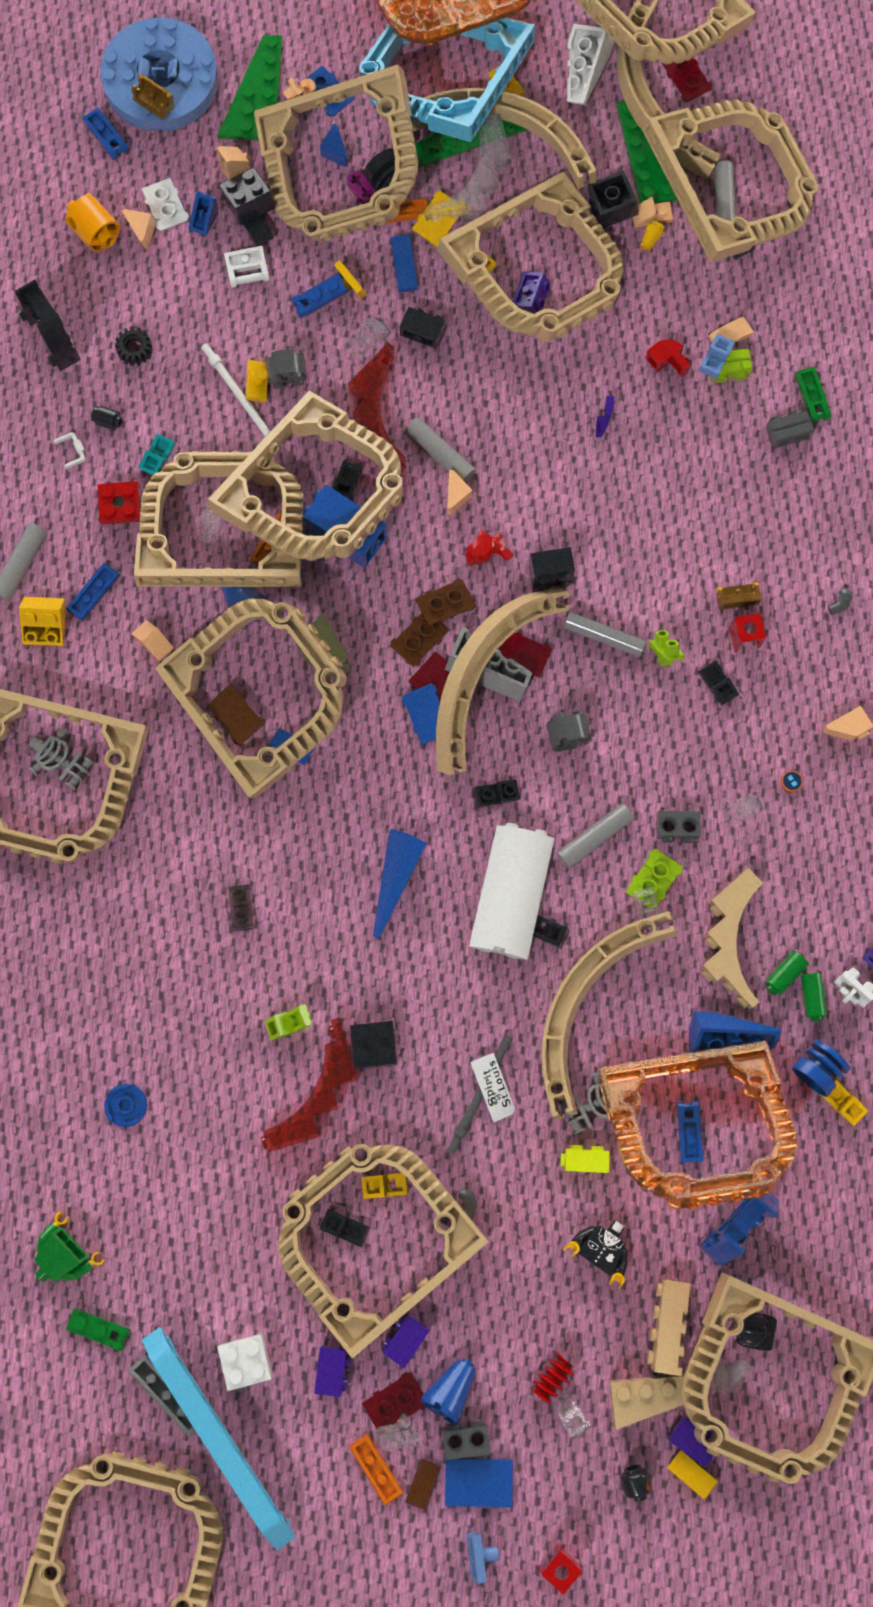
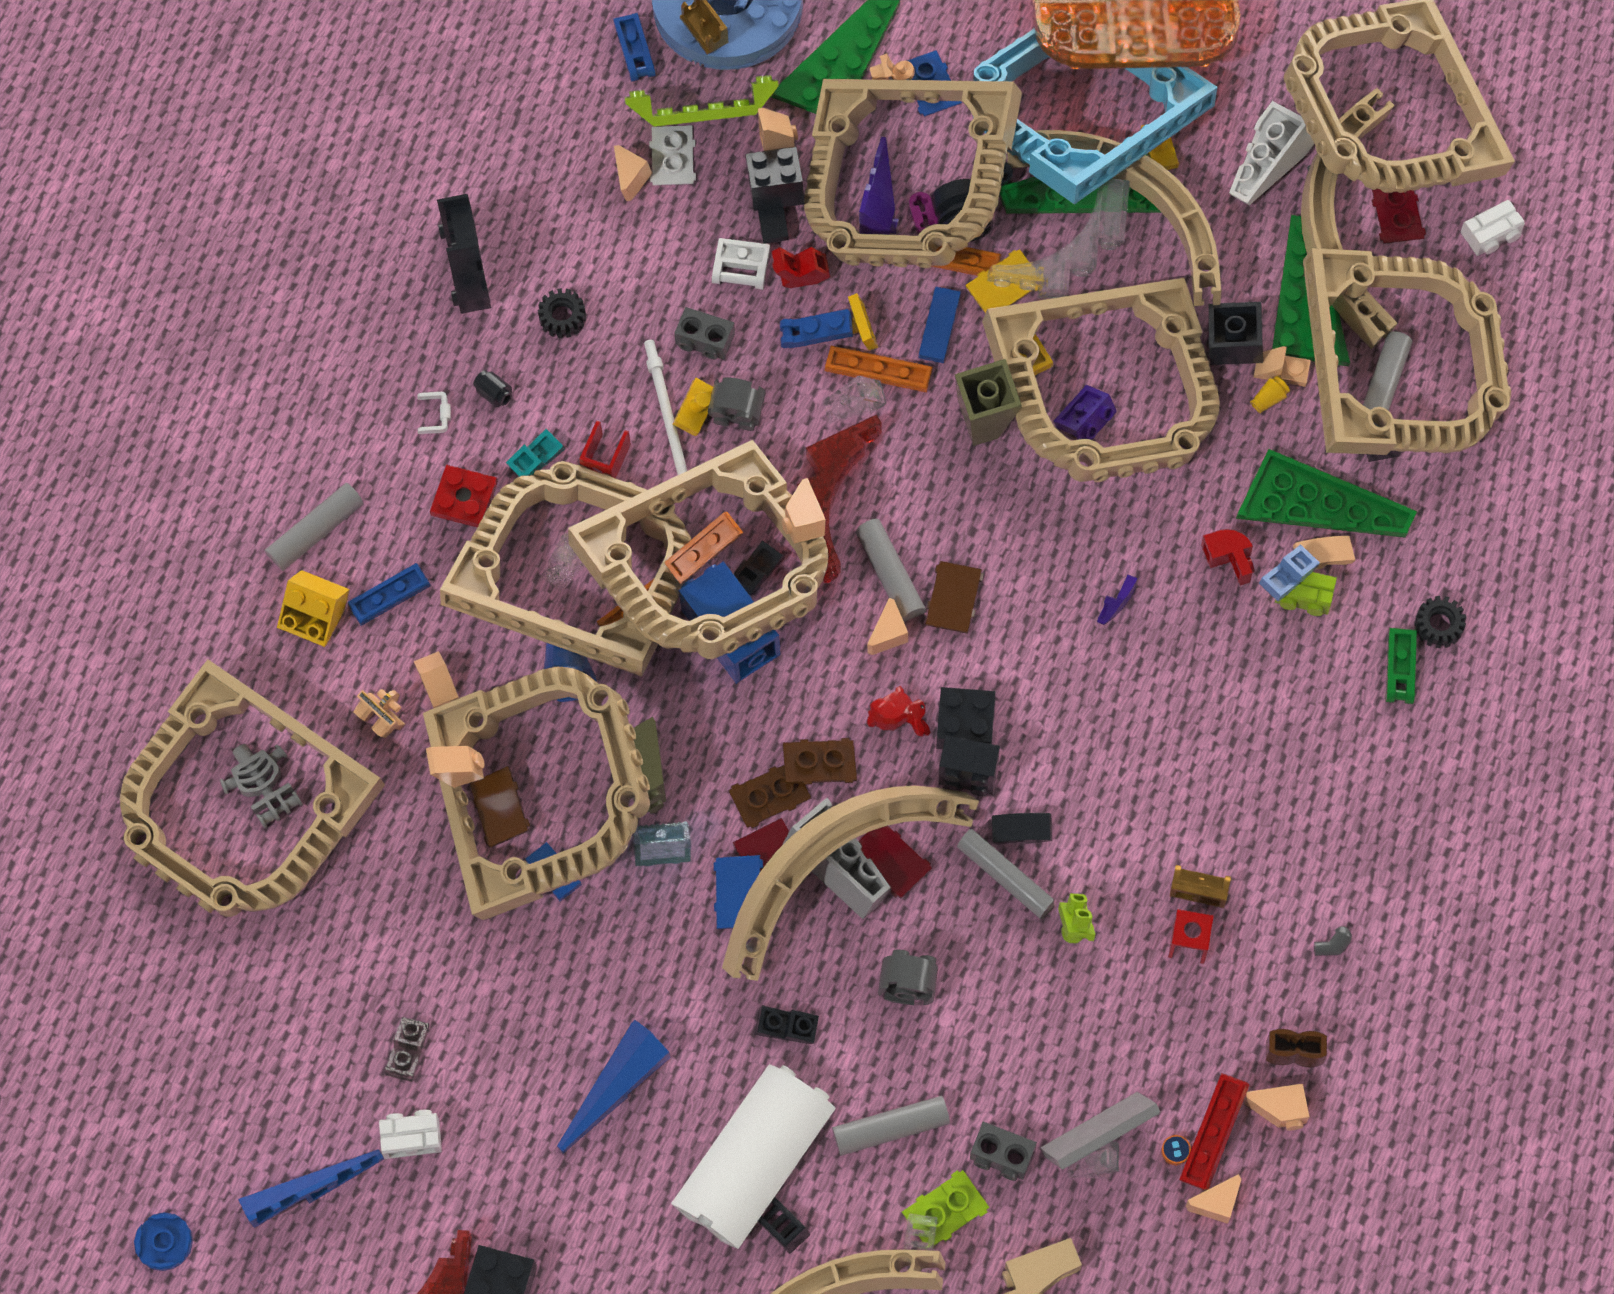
camera: 25 degrees right, 10 degrees down
(92, 223) = (572, 149): light orange cylinder -> none
(114, 675) = (371, 704): none -> light nougat hips
(196, 696) = (455, 764): none -> light nougat slope
(196, 1045) = (272, 1201): none -> blue wedge
(203, 213) = (713, 181): blue slope -> none
(212, 137) = (761, 92): none -> lime slope
(212, 447) = (591, 446): none -> red piece
(242, 321) = (707, 329): none -> dark grey brick
(268, 966) = (410, 1134): none -> white brick
(288, 1023) = (404, 1215): lime brick -> none
(292, 255) = (800, 269): none -> red brick
(309, 479) = (703, 547): none -> orange tile
(328, 188) = (878, 204): none -> dark purple wedge
(333, 148) = (907, 153): blue slope -> none
(362, 700) = (662, 844): none -> clear light blue brick
(371, 431) = (803, 515): none -> light nougat slope
(377, 308) = (882, 368): none -> orange tile
(422, 327) = (928, 410): black brick -> none
(463, 305) = (987, 400): none -> olive slope
(491, 454) = (953, 597): none -> reddish brown piece
(534, 534) = (965, 715): none -> black brick
(602, 599) = (1021, 828): none -> black slope
(703, 299) = (1307, 497): none -> green wing
(718, 683) = (1130, 988): black slope -> none
(739, 787) = (1100, 1130): none -> light grey tile
(757, 65) = (1493, 228): none -> white brick
(789, 429) = (1352, 697): dark grey brick -> none
(814, 759) = (1214, 1132): none -> red tile
(834, 347) = (1443, 607): none -> black tyre
(834, 806) = (1217, 1201): none -> light nougat slope
(842, 683) = (1289, 1047): none -> reddish brown brick

